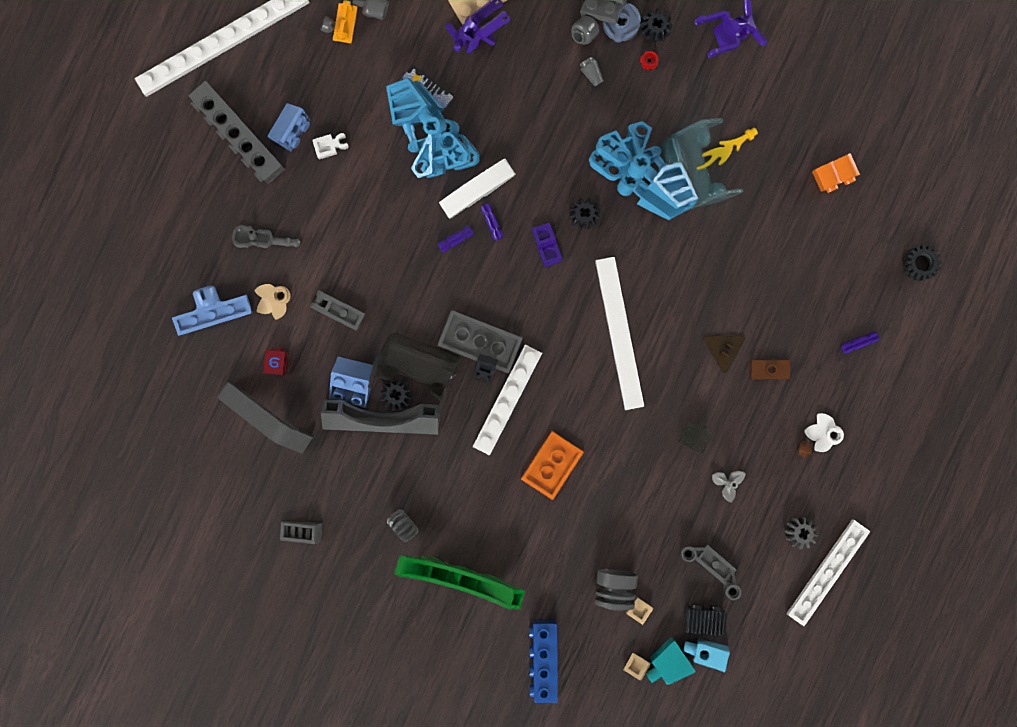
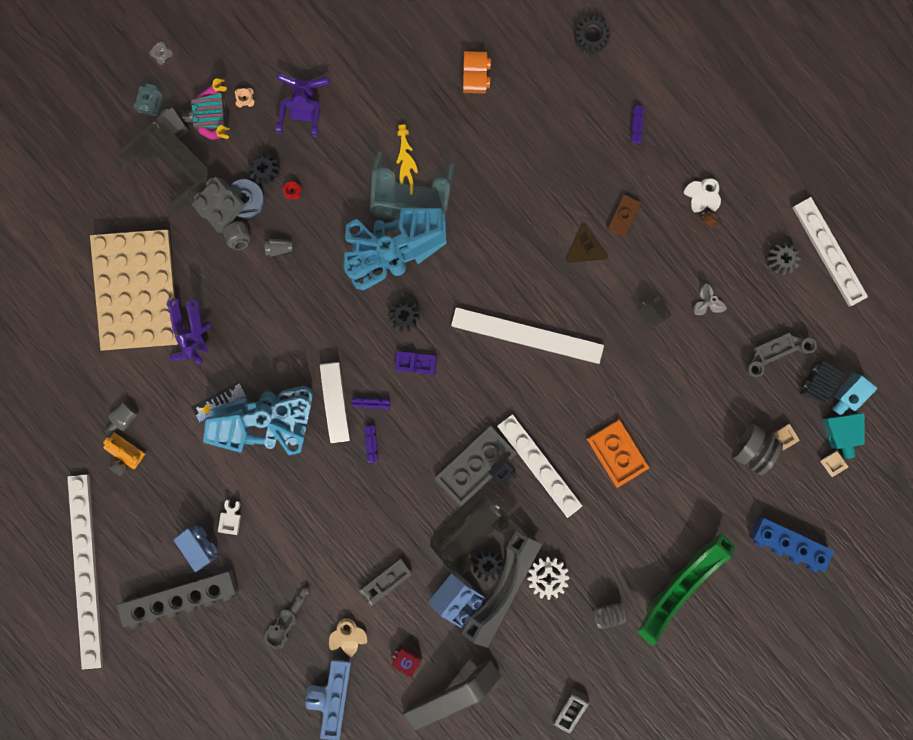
camera: 60 degrees left, 0 degrees up
(414, 463) = (557, 578): none -> white gear

